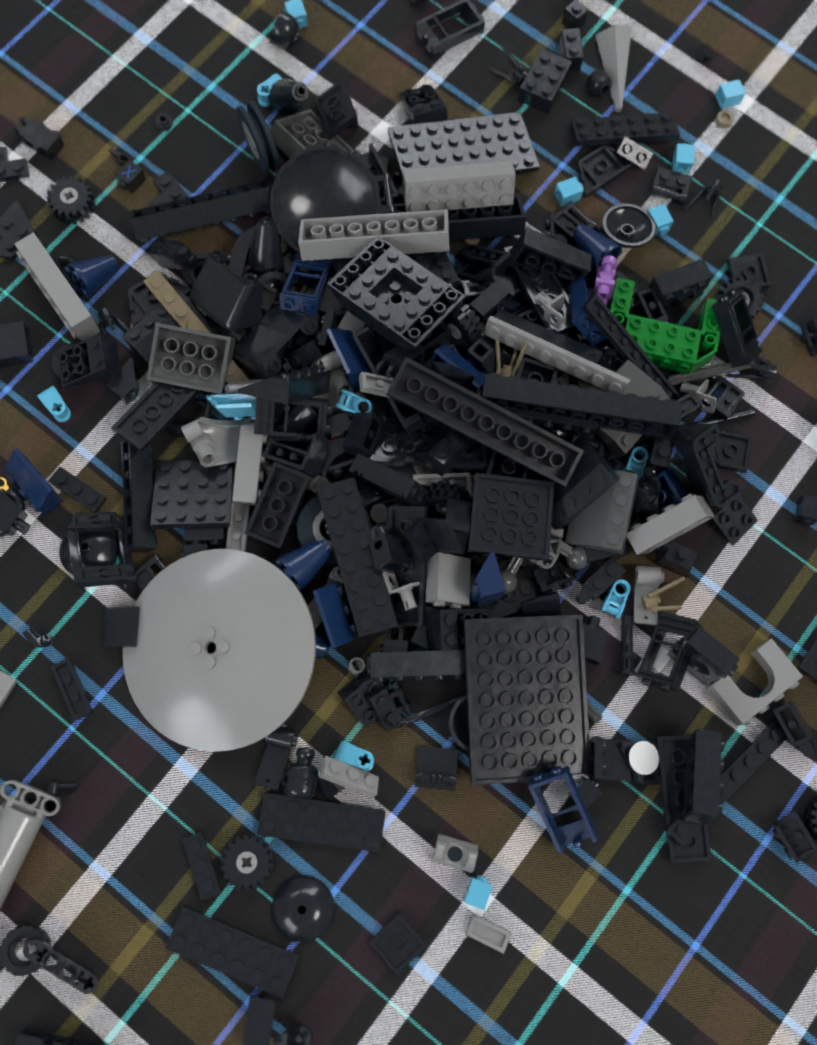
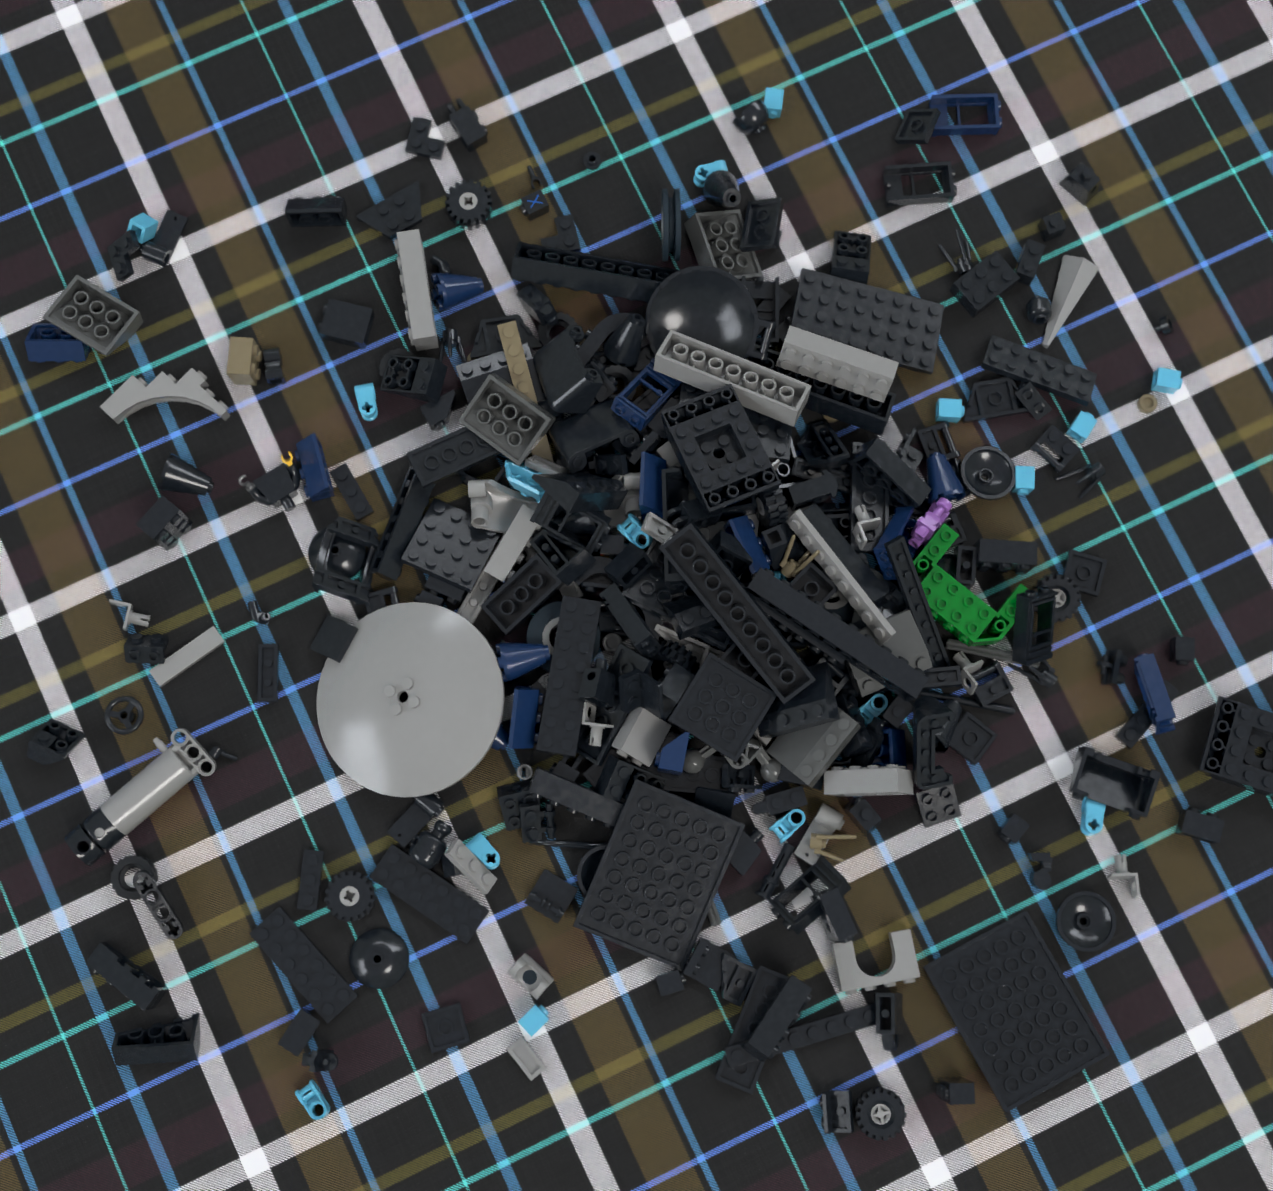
camera: 25 degrees right, 5 degrees up
(571, 832) = (635, 1008): dark blue door -> none
(643, 757) = (738, 977): white sticker -> none

